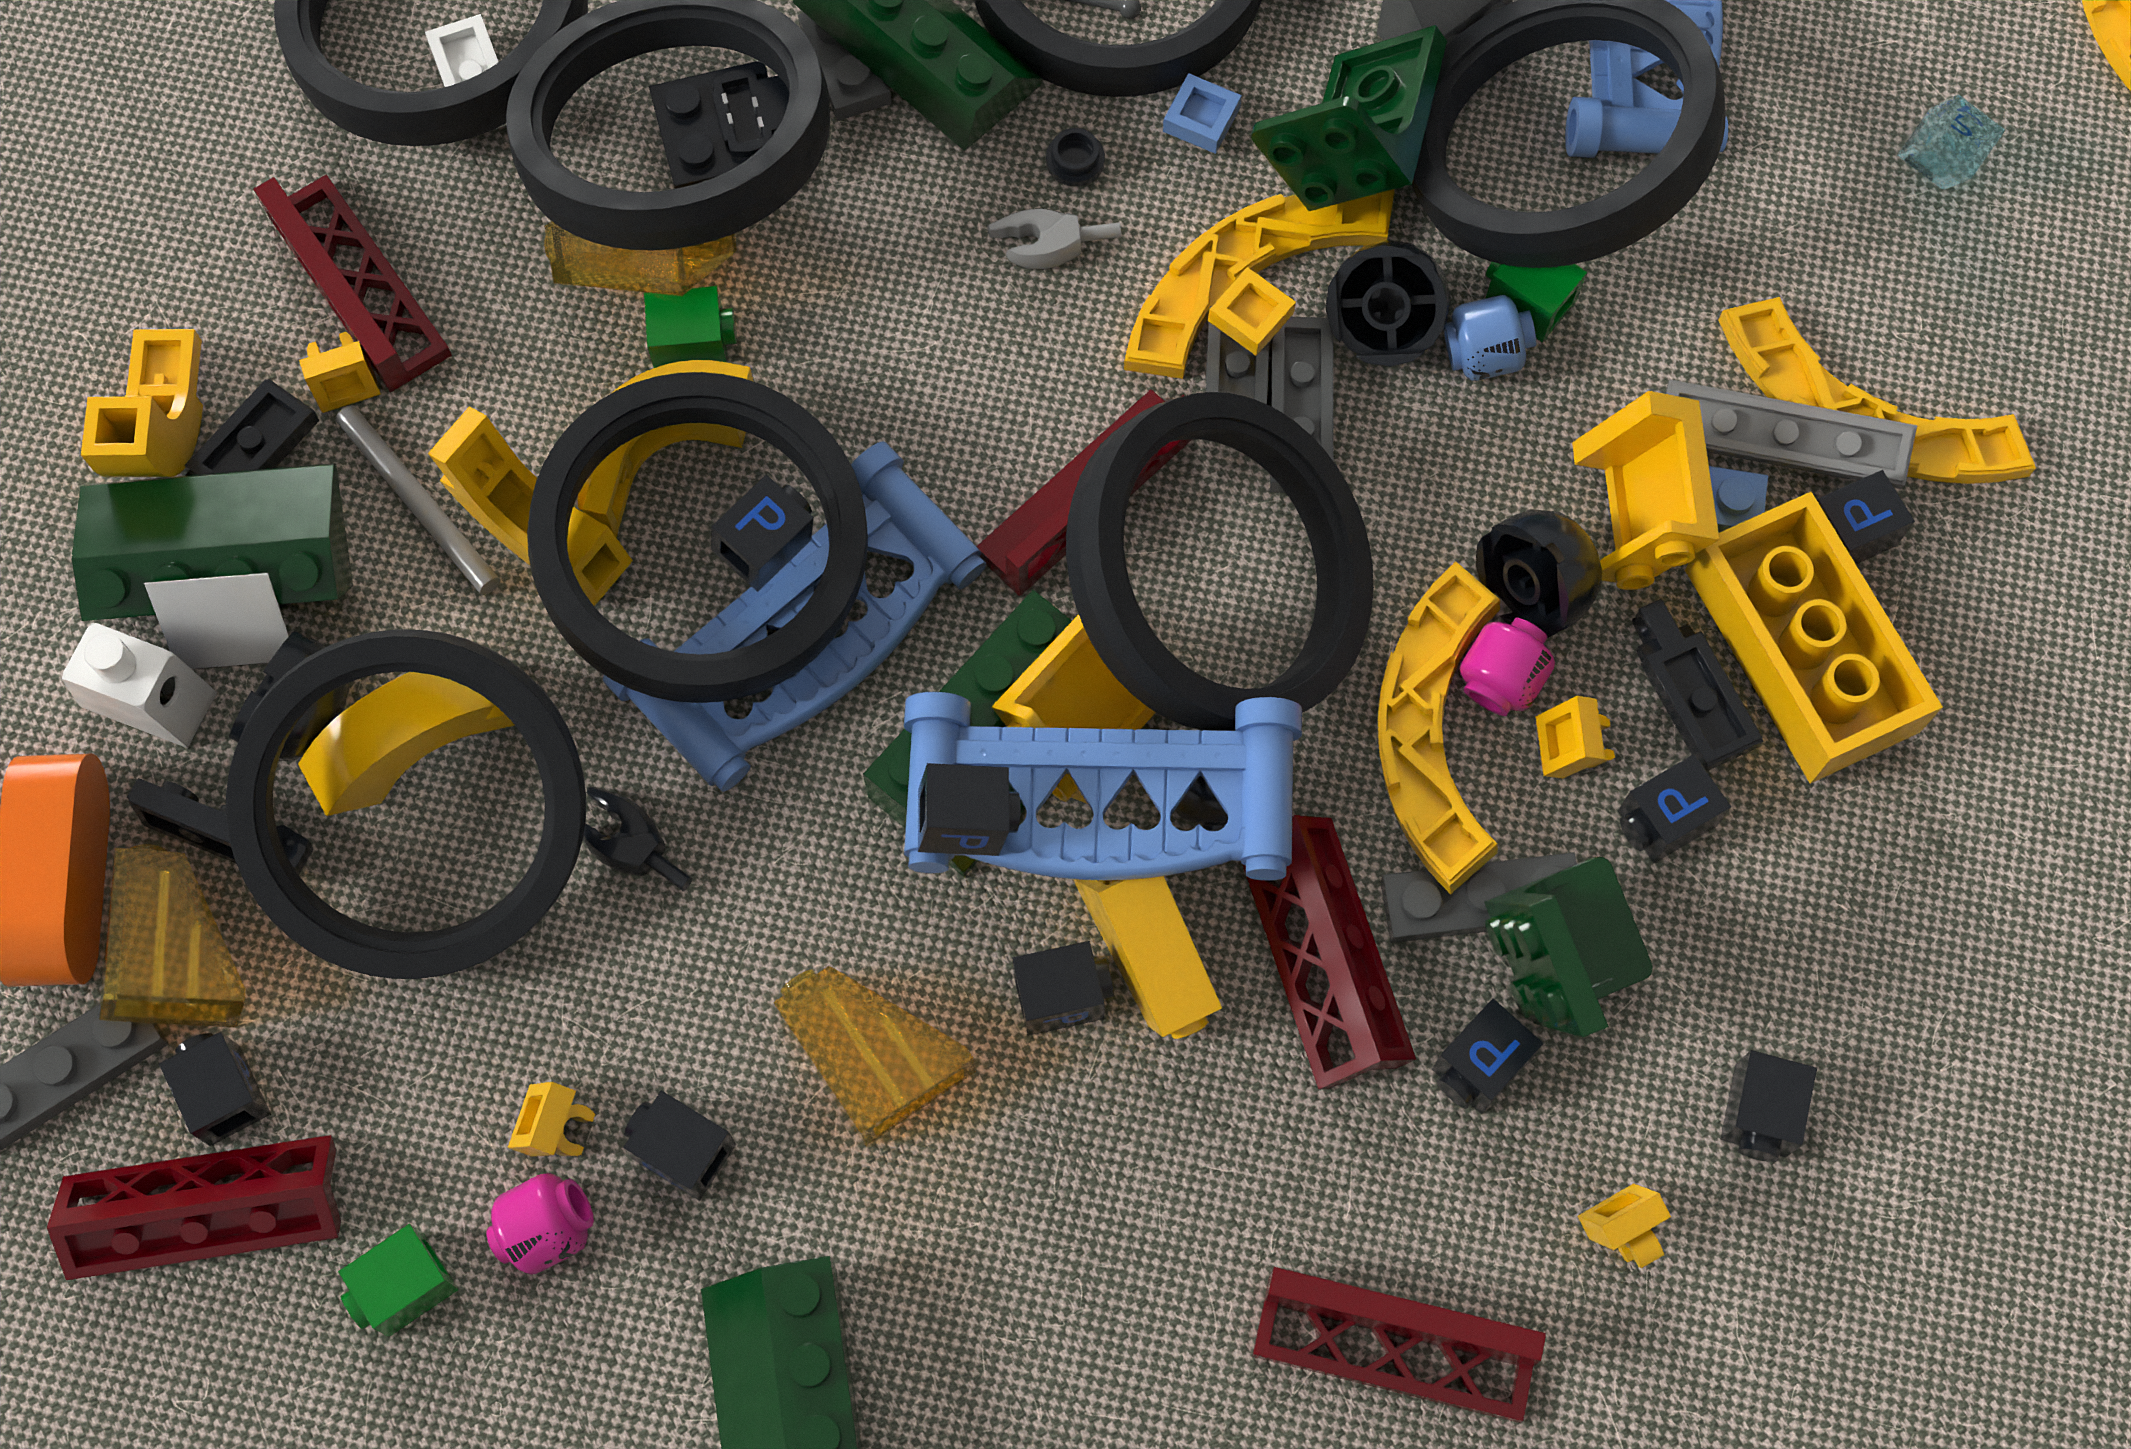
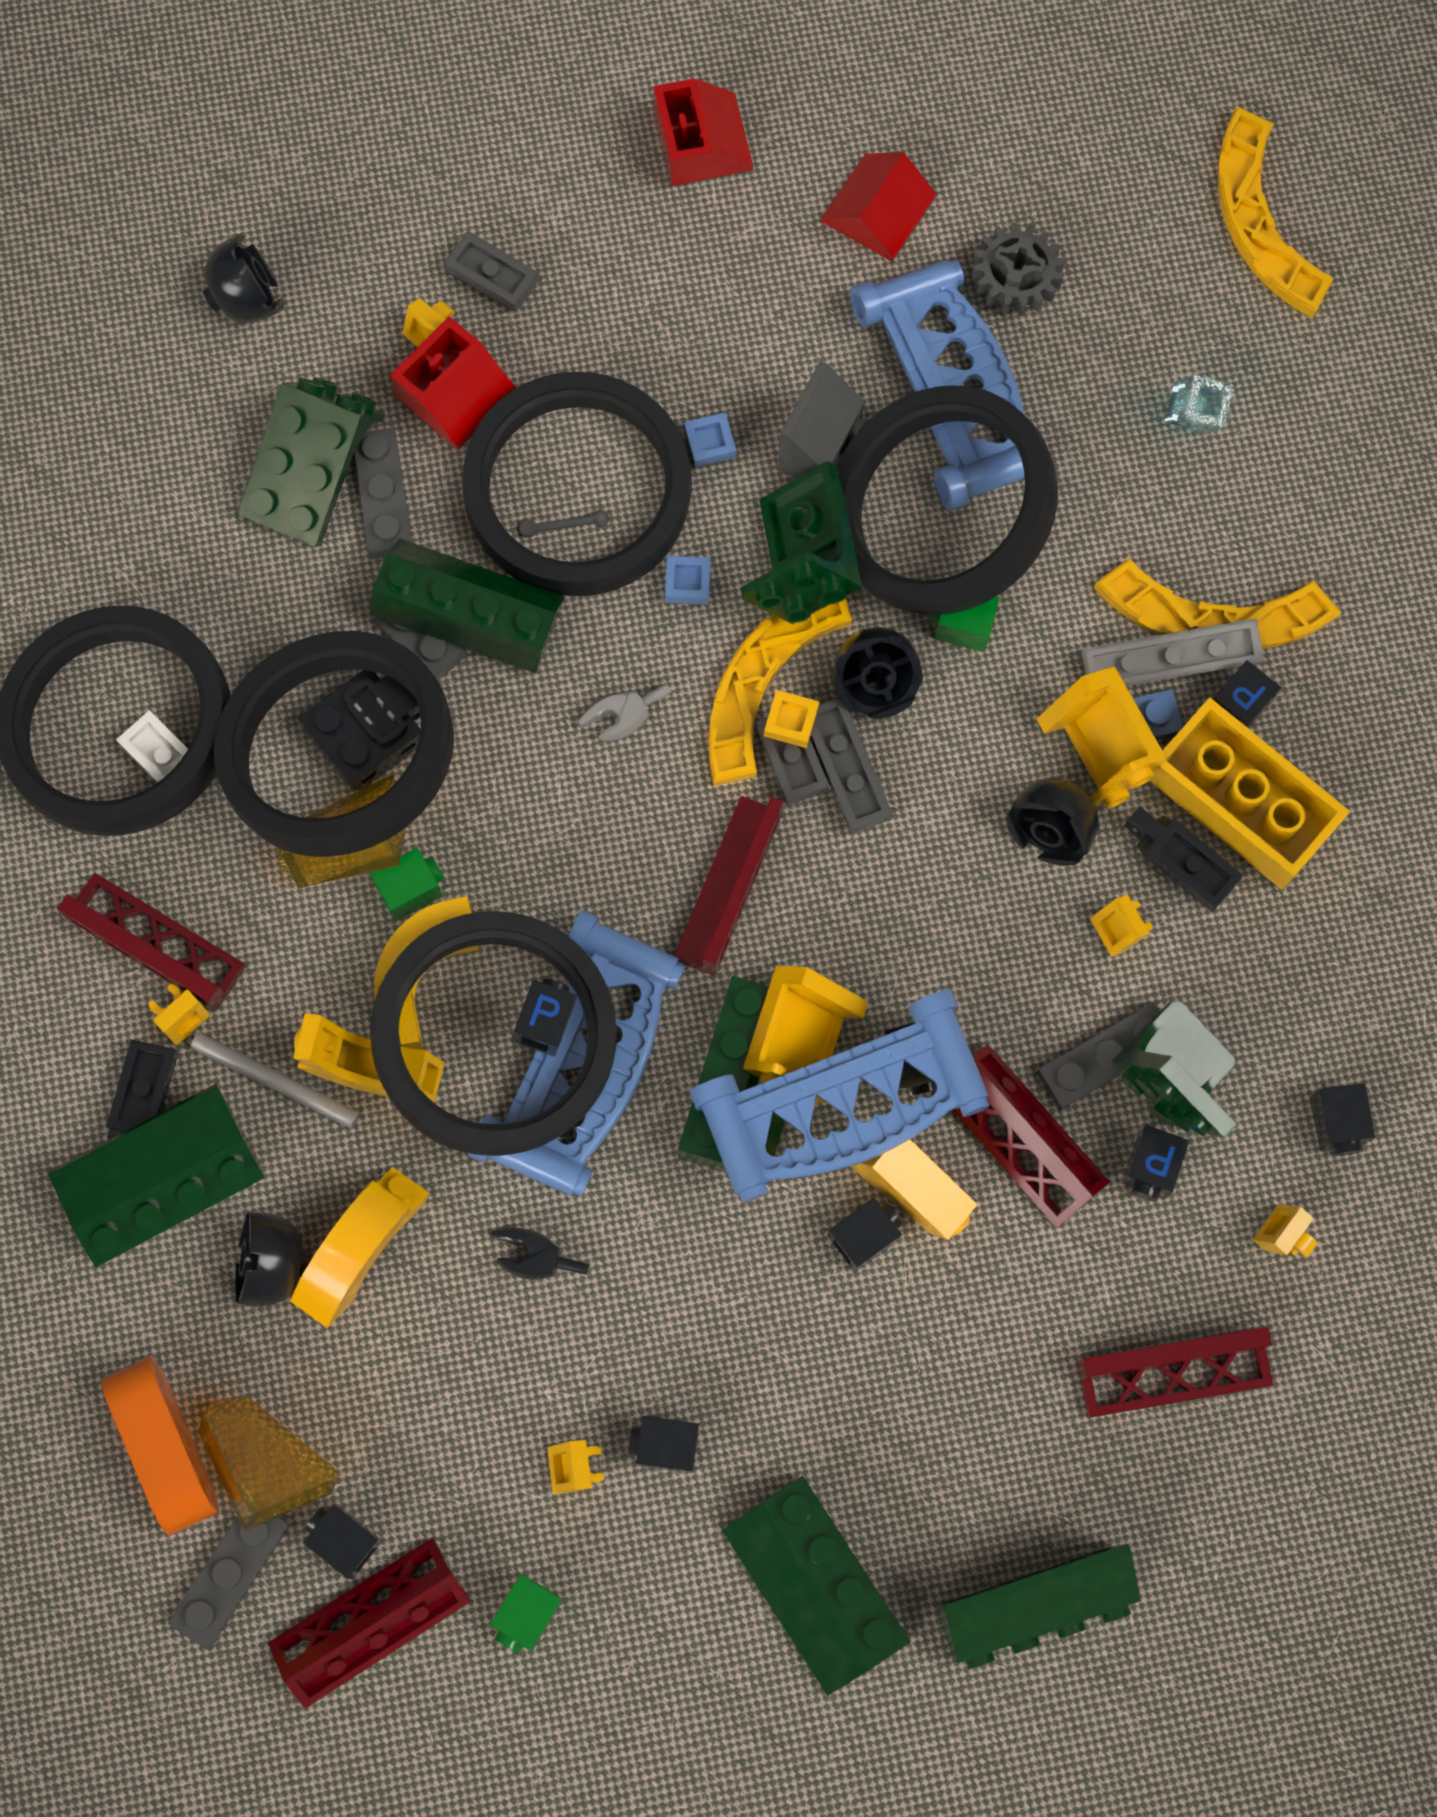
camera: 25 degrees left, 5 degrees up
(124, 682) = (154, 1294): white torso -> none
(159, 417) = (72, 1110): yellow arch -> none
(180, 815) = (262, 1368): black hinge -> none
(219, 619) = (190, 1226): white sticker -> none
(348, 941) = (430, 1395): black tyre -> none
(539, 1223) = (600, 1535): dark pink head -> none
(869, 1051) = (759, 1329): clear yellow slope -> none
(966, 809) = (769, 1153): black brick -> none
(1075, 157) = (614, 647): black plate -> none
(1103, 585) = (778, 943): black tyre -> none
(1412, 727) = (1015, 962): yellow tile -> none
(1489, 338) = (952, 667): medium blue head -> none
(1507, 666) = (1059, 894): dark pink head -> none
(1672, 809) = (1204, 947): black brick -> none

